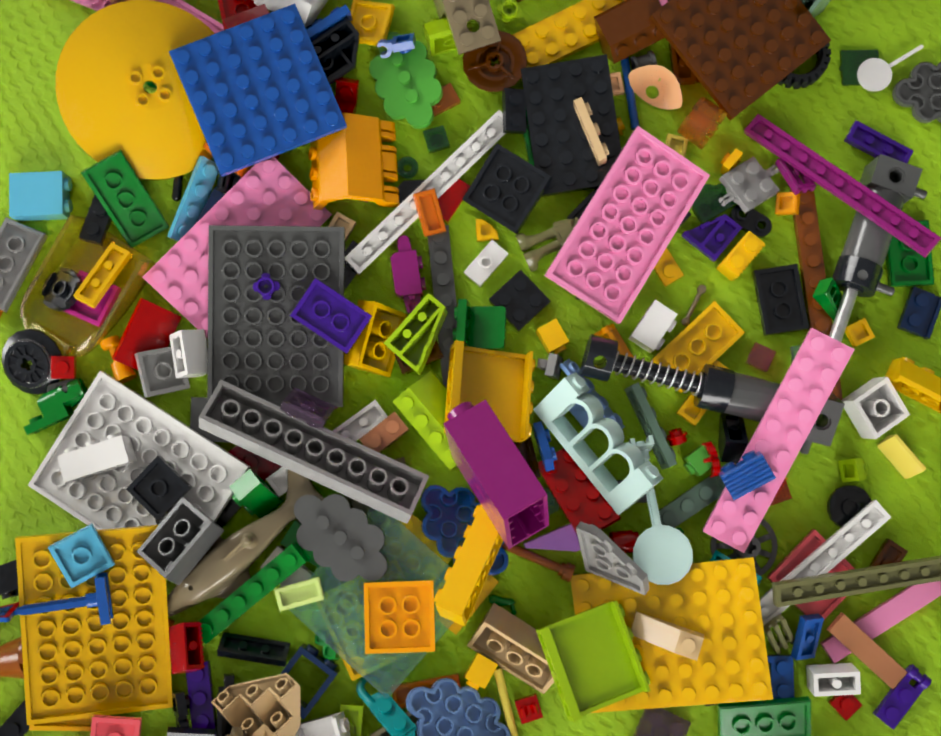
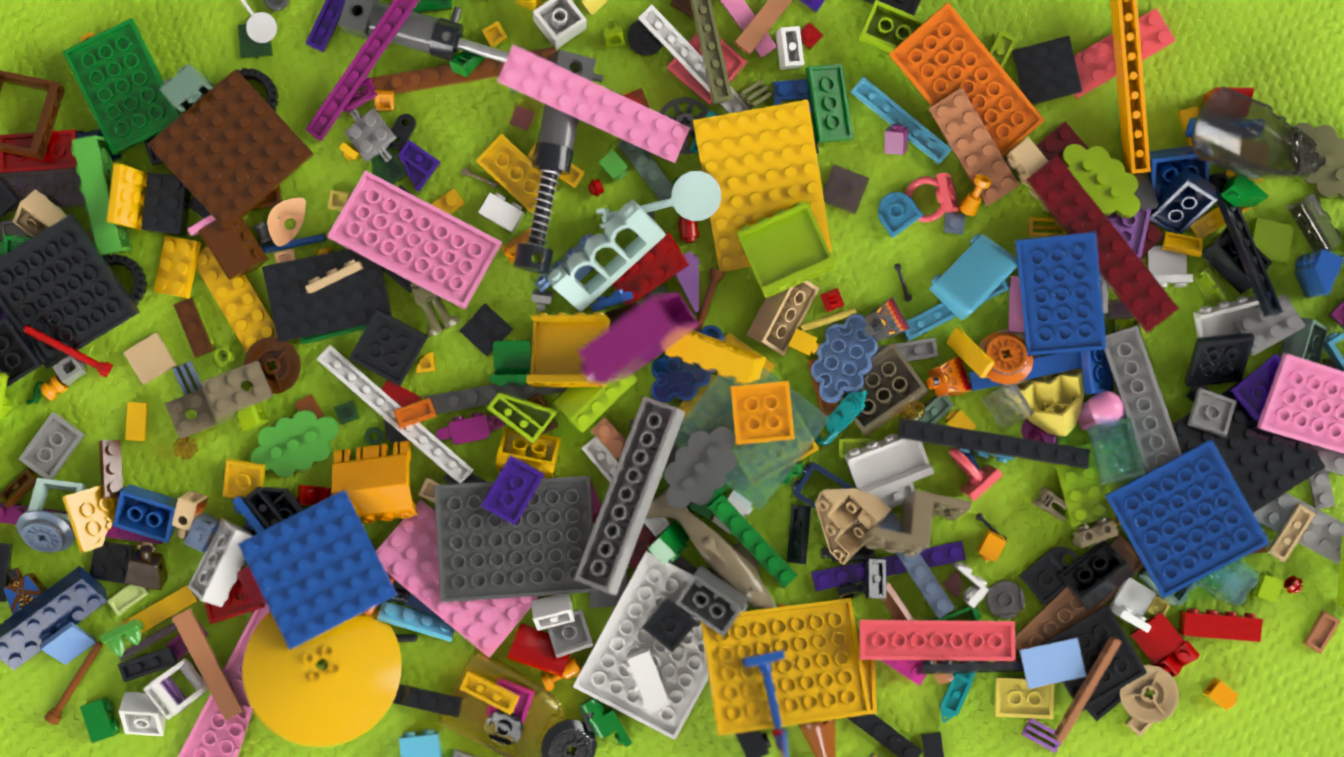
camera: 90 degrees left, 5 degrees up
(63, 367) = (572, 718): red plate -> none
(81, 555) = (729, 680): medium azure tile -> none
(125, 198) = (420, 679): green tile -> none
(186, 647) = (800, 589): red brick -> none
(259, 286) = (490, 553): dark purple plate -> none
(299, 594) = (749, 498): yellowish green tile -> none
(308, 408) = (593, 503): clear purple plate -> none
(400, 43) = (263, 449): plate -> none
(486, 263) = (455, 361): white plate -> none
(501, 601) = (745, 328): green piece -> none
(514, 111) = (317, 345): black plate -> none
(552, 337) = (517, 299): yellow brick -> none
(608, 561) = (704, 241): light grey plate -> none
(647, 418) = (583, 213): sand green plate -> none
(668, 635) = (762, 188): tan slope -> none
(702, 122) = (317, 179): clear orange brick -> none
(713, 458) = (612, 156): red piece -> none
(732, 438) = (594, 140): black slope -> none
(740, 256) = (434, 139): yellow brick -> none
(746, 474) = (625, 130): blue brick -> none
(780, 299) = (470, 103): black plate -> none
(807, 636) = (756, 70): blue plate -> none

